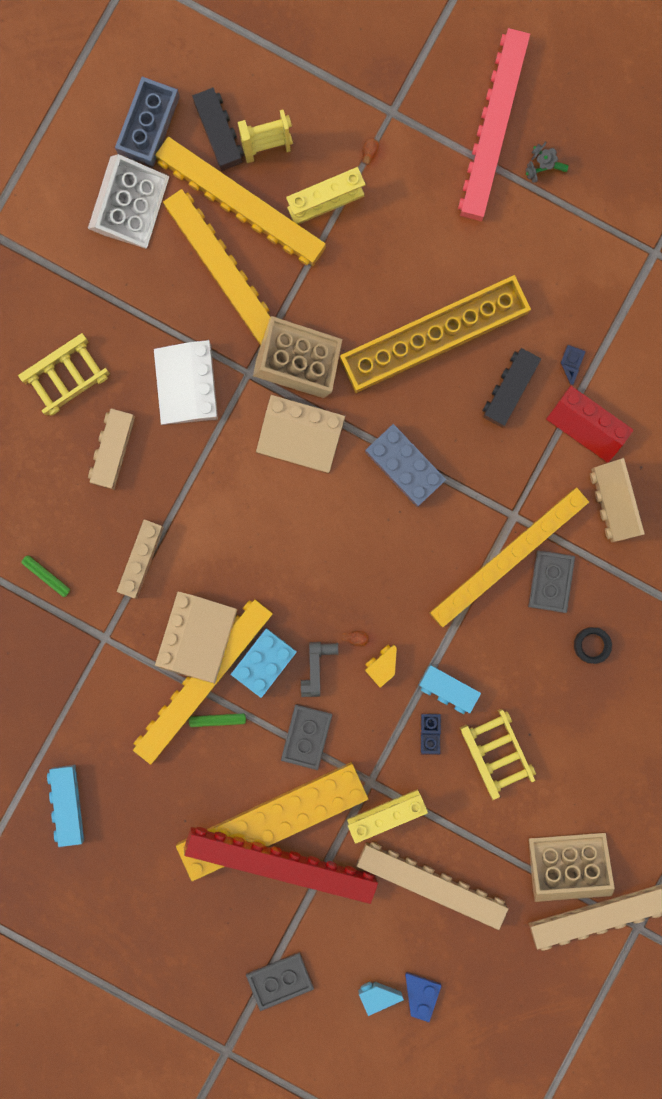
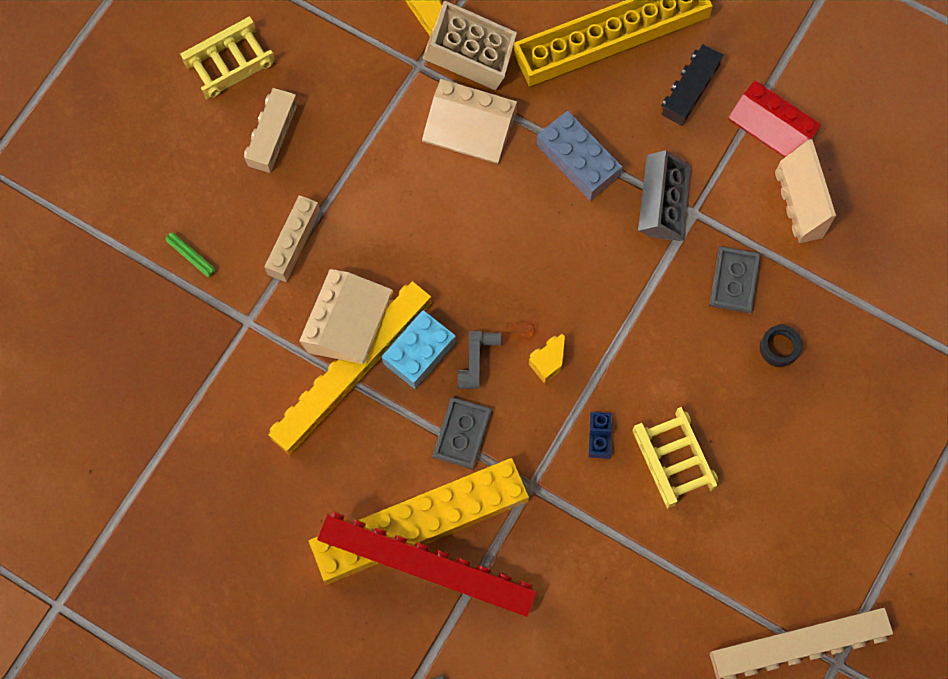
camera: 10 degrees right, 15 degrees down
(66, 805) = (189, 495): medium azure brick -> none
(186, 383) = (353, 70): white slope -> none
(217, 720) = (378, 410): bright green axle -> none
(386, 816) = (549, 515): light yellow fence -> none
(432, 886) = (599, 602): tan brick -> none
(449, 690) = (621, 385): medium azure brick -> none
(486, 503) = (664, 196): none -> dark grey slope
(509, 557) = (687, 251): yellow brick -> none
(570, 867) = (758, 588): tan slope -> none
(571, 362) = (755, 63): dark blue slope -> none

